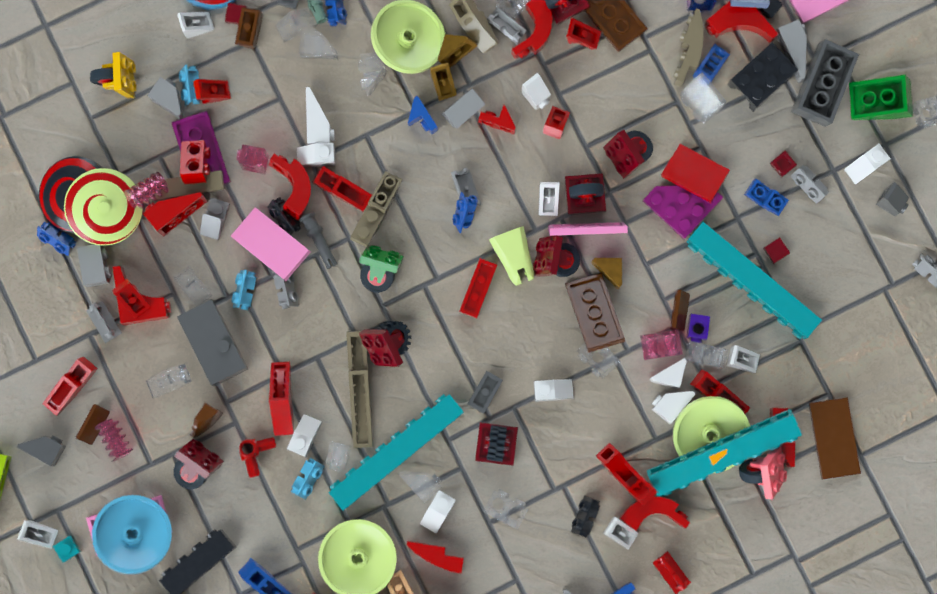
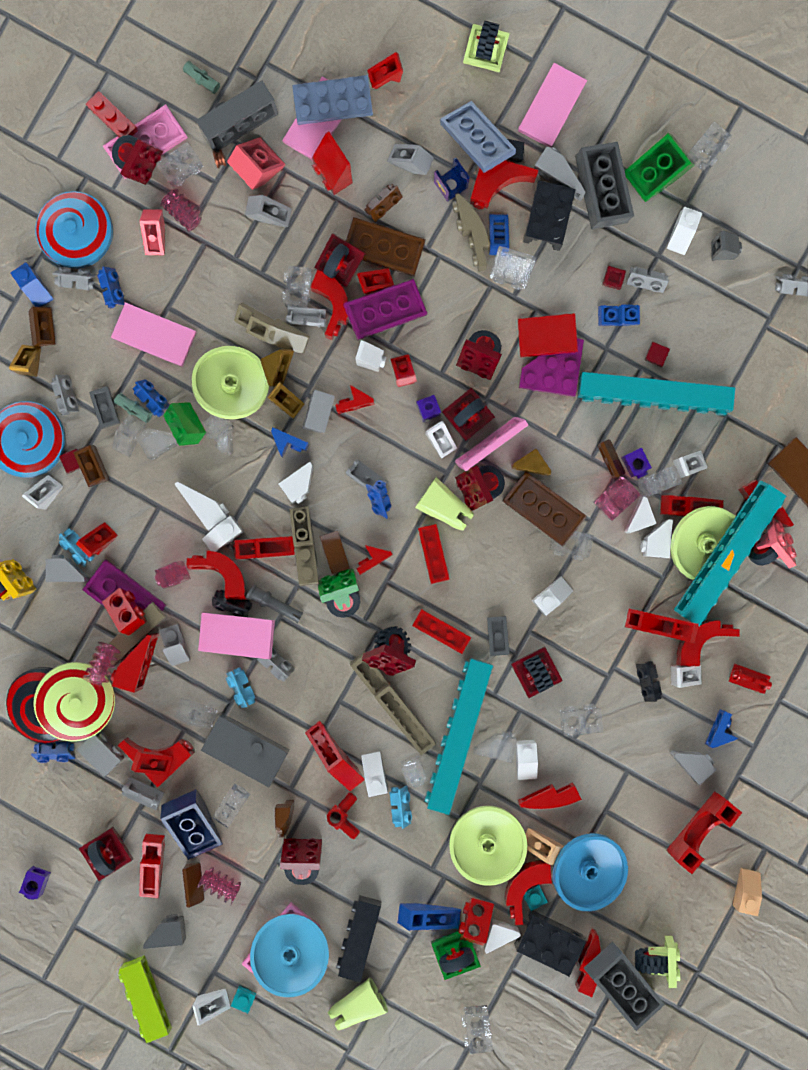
camera: 35 degrees left, 5 degrees up
(39, 350) = (106, 853): none -> dark red plate
(125, 374) = (190, 824): none -> dark blue slope
(347, 44) = (184, 423): none -> green brick
(398, 231) = (334, 552): none -> reddish brown slope
(406, 156) = (298, 484): none -> white slope
(430, 259) = (378, 556): none -> red slope
(440, 356) = (441, 631): none -> red plate
(555, 166) = (428, 408): none -> dark purple brick
(575, 62) = (385, 309): none -> magenta tile

